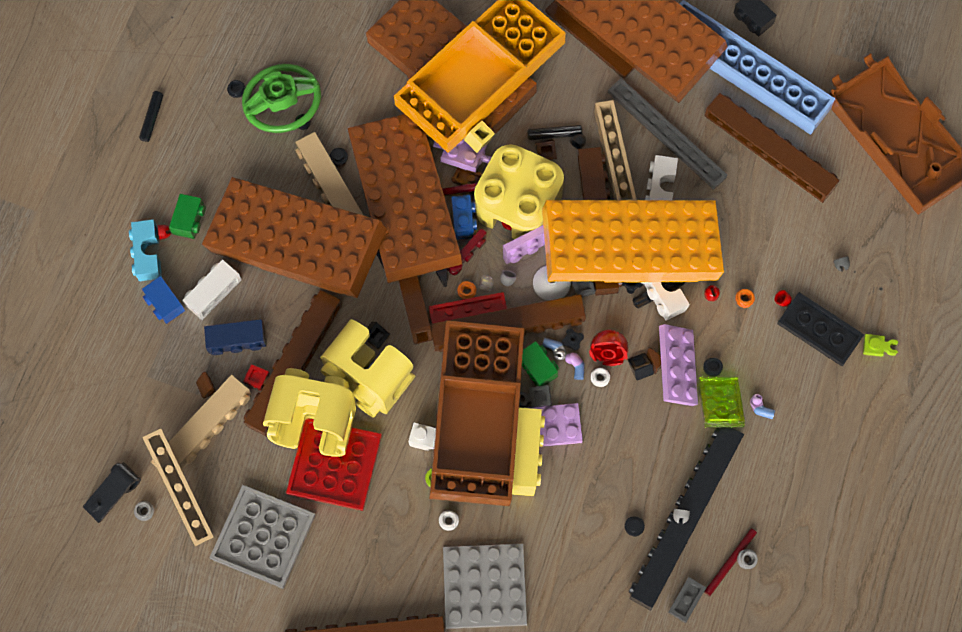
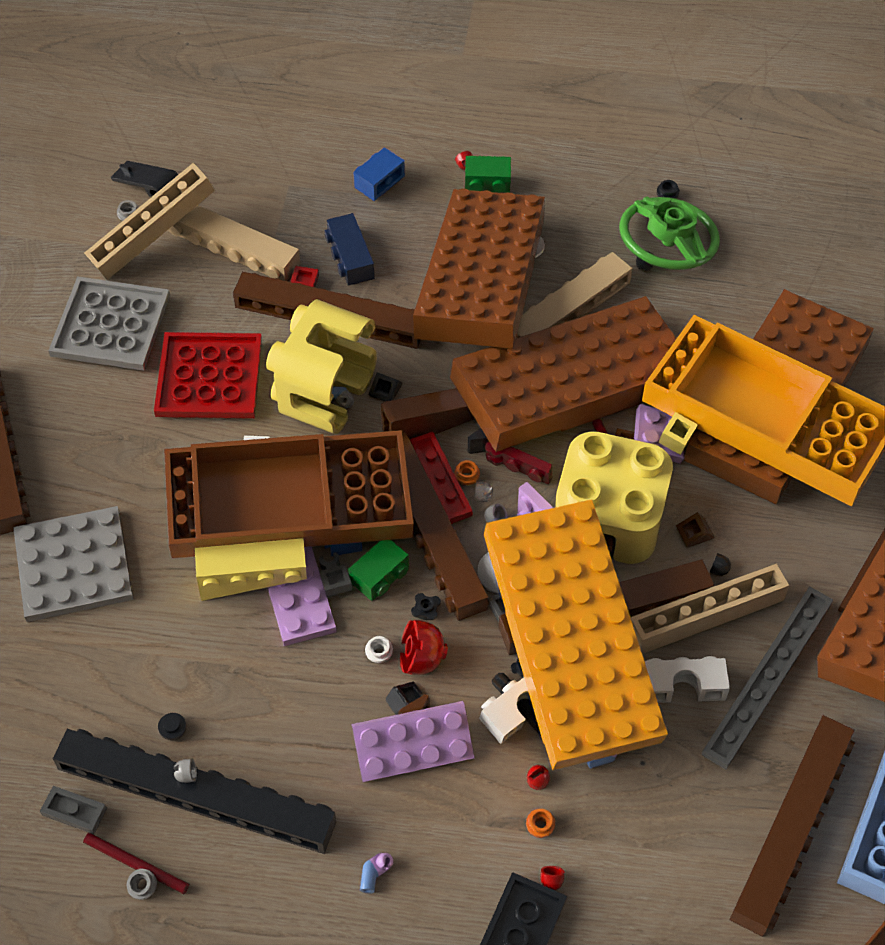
camera: 75 degrees right, 15 degrees down
(143, 235) = (450, 142): medium azure arch -> none
(151, 116) = (606, 122): black axle -> none
(205, 385) = (288, 235): reddish brown slope -> none
(211, 289) = (403, 216): white brick -> none
(300, 398) = (251, 311): light yellow piece -> none
(338, 156) = (610, 301): black plate -> none
(448, 514) = (150, 502): white plate -> none
(462, 215) = (555, 444): blue brick -> none
(554, 132) = (724, 535): black axle -> none
(557, 348) = (405, 594): arm -> none
(578, 363) = (393, 618): arm -> none
(713, 367) = (423, 794): black plate -> none
(721, 402) = (366, 805): clear neon green plate -> none

